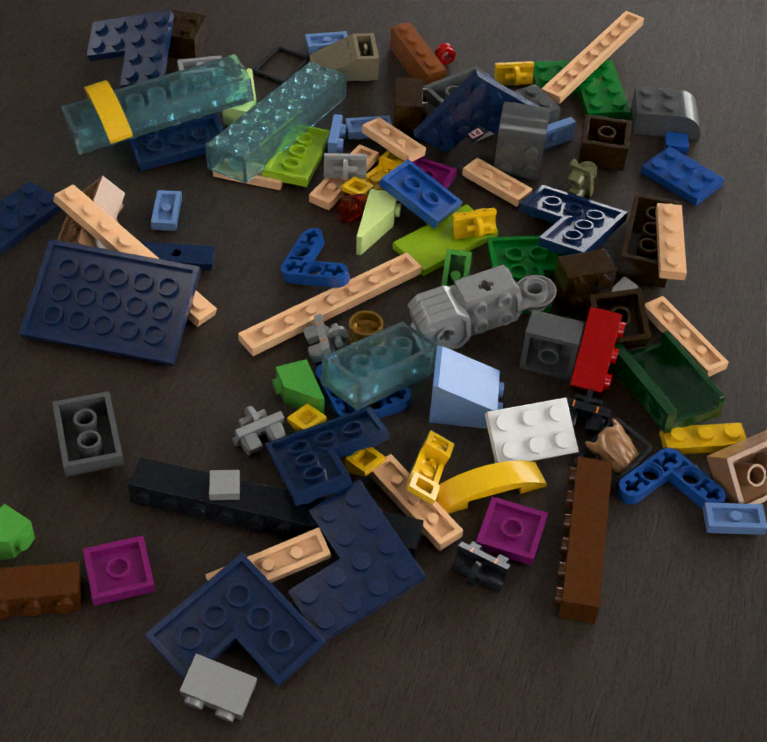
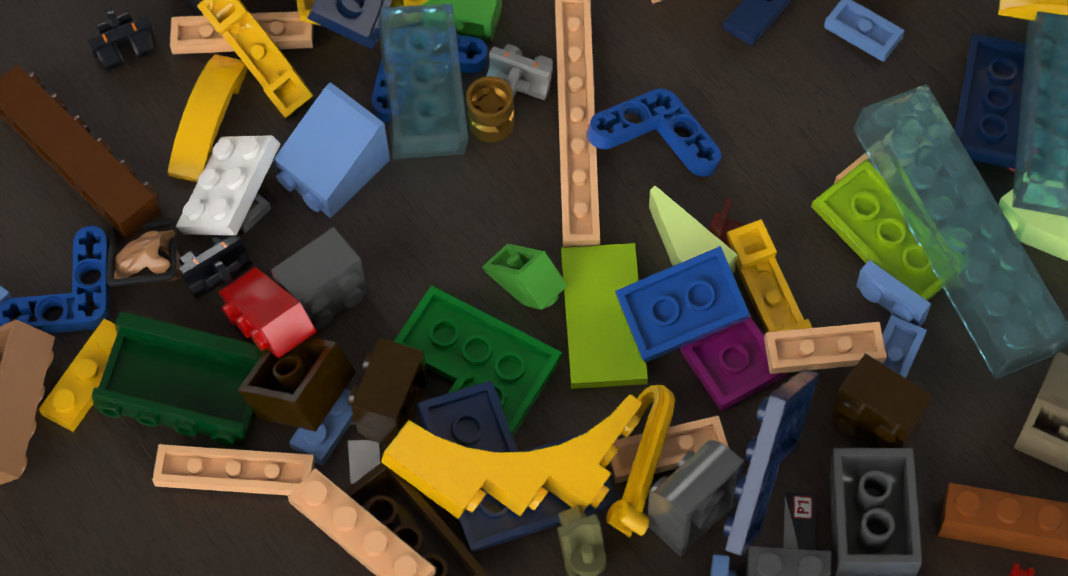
camera: 130 degrees right, 15 degrees up
(330, 191) = (804, 263): light nougat plate -> none
(345, 165) = (812, 237): light grey hips -> none
(474, 223) = (585, 356): yellow hips -> none
(477, 305) = (438, 212): light grey brick -> none
(507, 178) = (628, 513): none -> yellow piece
(512, 530) = (137, 94): magenta plate -> none
(580, 201) = (456, 474): none -> yellow arch

